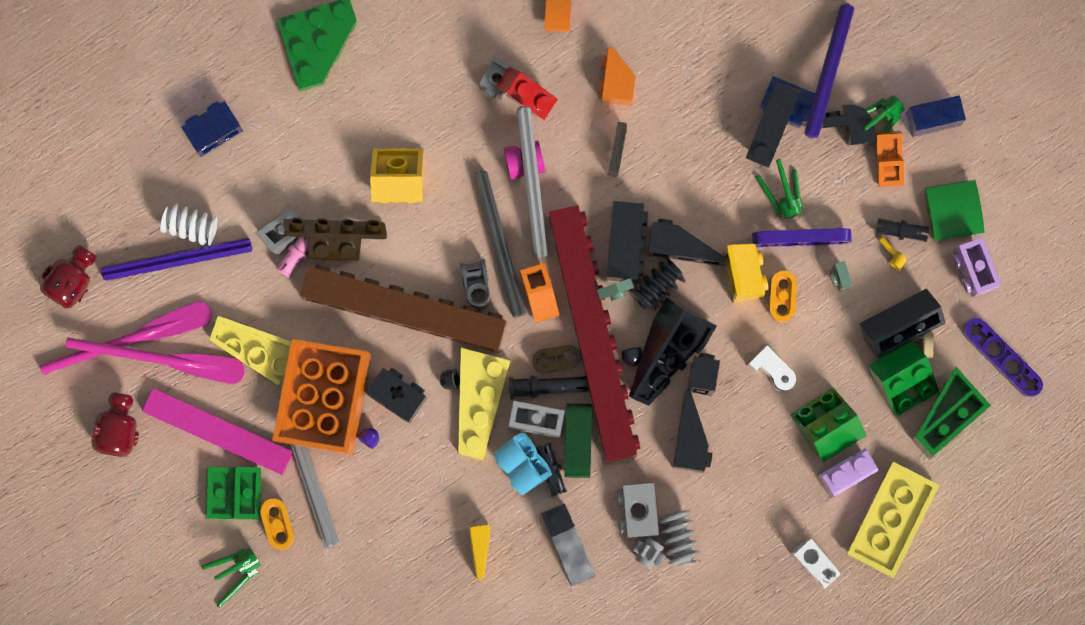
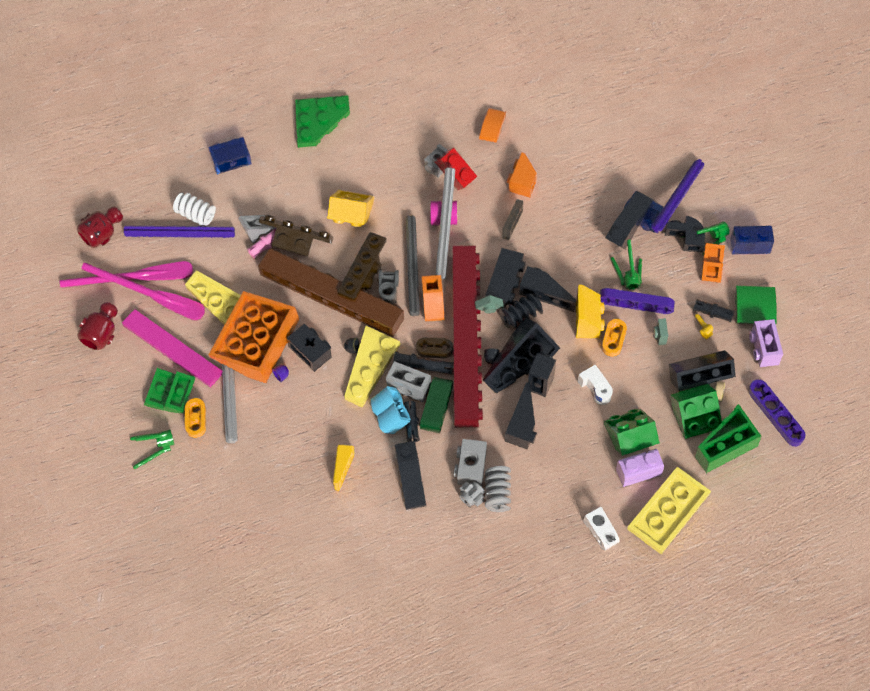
camera: 15 degrees right, 20 degrees down
(438, 268) = (364, 267): none -> dark brown bracket

